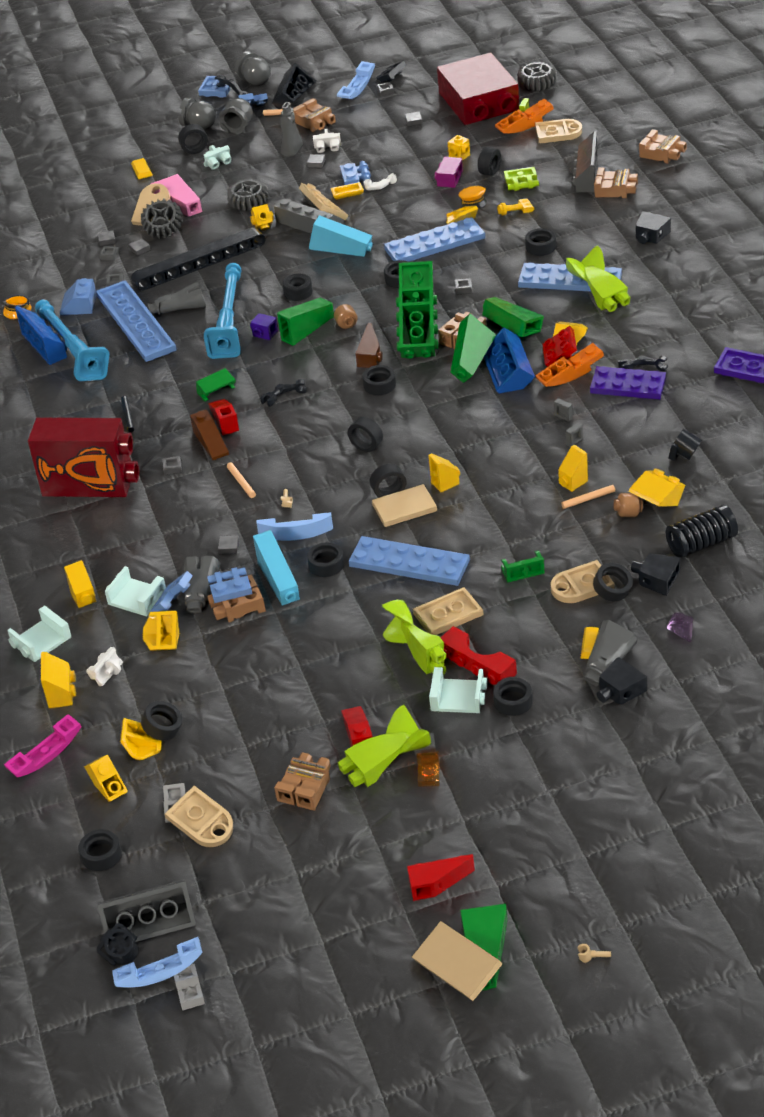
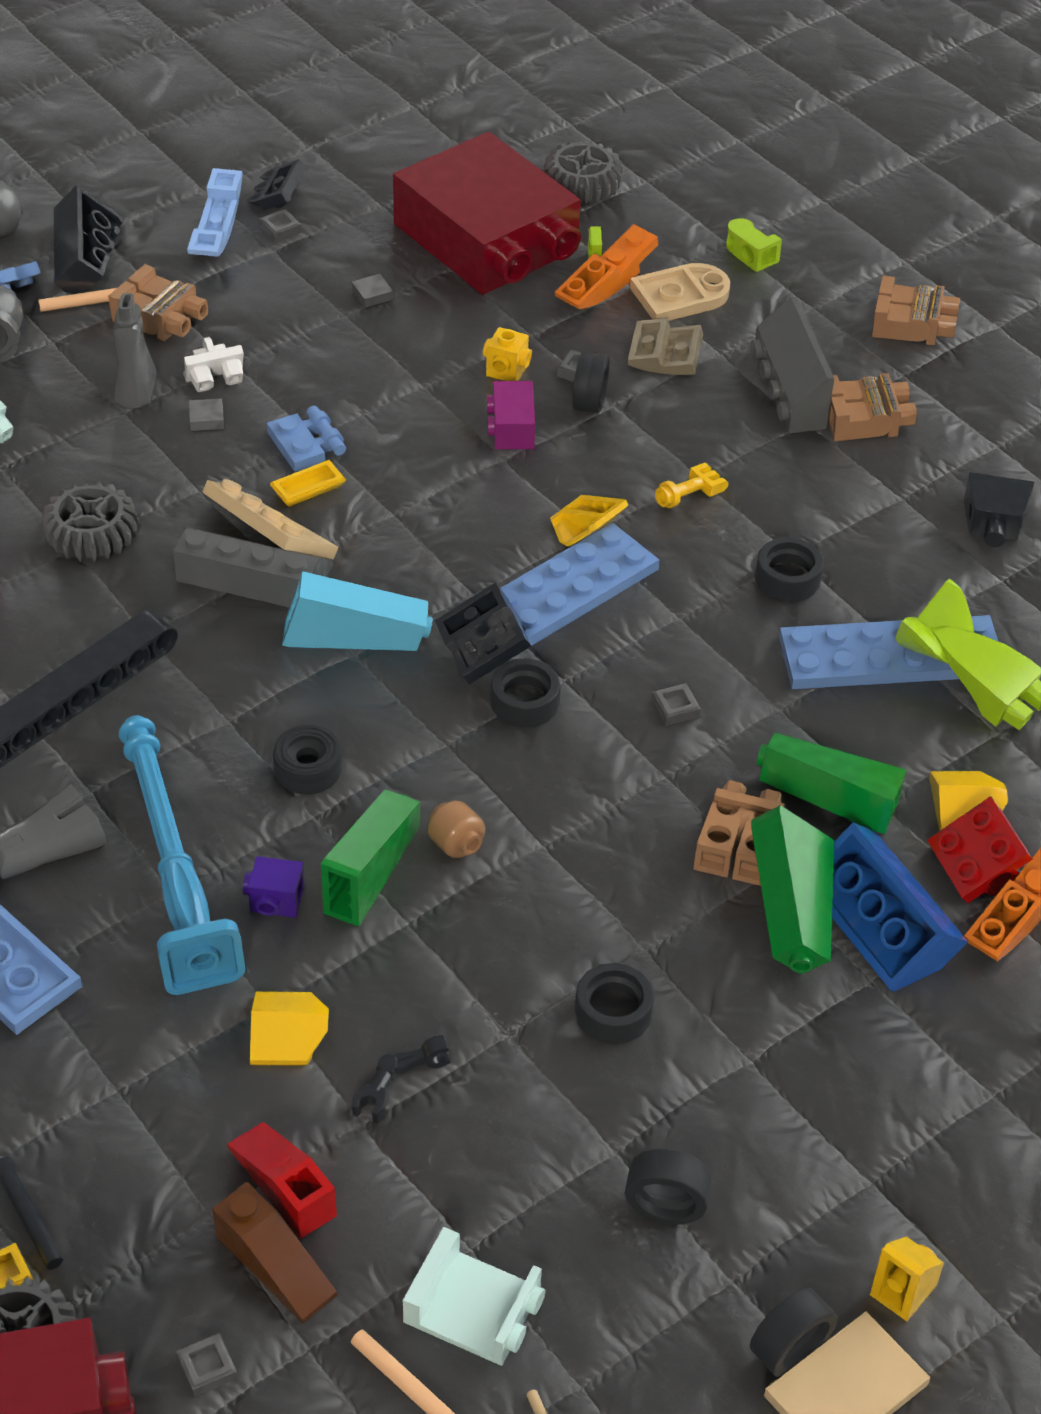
camera: 25 degrees left, 5 degrees up
(214, 382) = (225, 1084): green hinge -> none
(247, 372) = (286, 1027): none -> yellow slope
(261, 217) = (150, 580): yellow brick -> none
(273, 460) = (471, 1301): none -> light aqua panel
(368, 351) = (555, 916): slope -> none
(369, 185) = (355, 466): white arm -> none
(389, 247) = (483, 633): none -> black brick
(416, 310) = (637, 805): green wedge -> none
(473, 196) = (590, 470): light orange piece -> none
(521, 178) = (666, 407): lime plate -> none
(536, 153) = (665, 349): none -> dark tan slope
(601, 114) = (752, 245): none -> lime leg

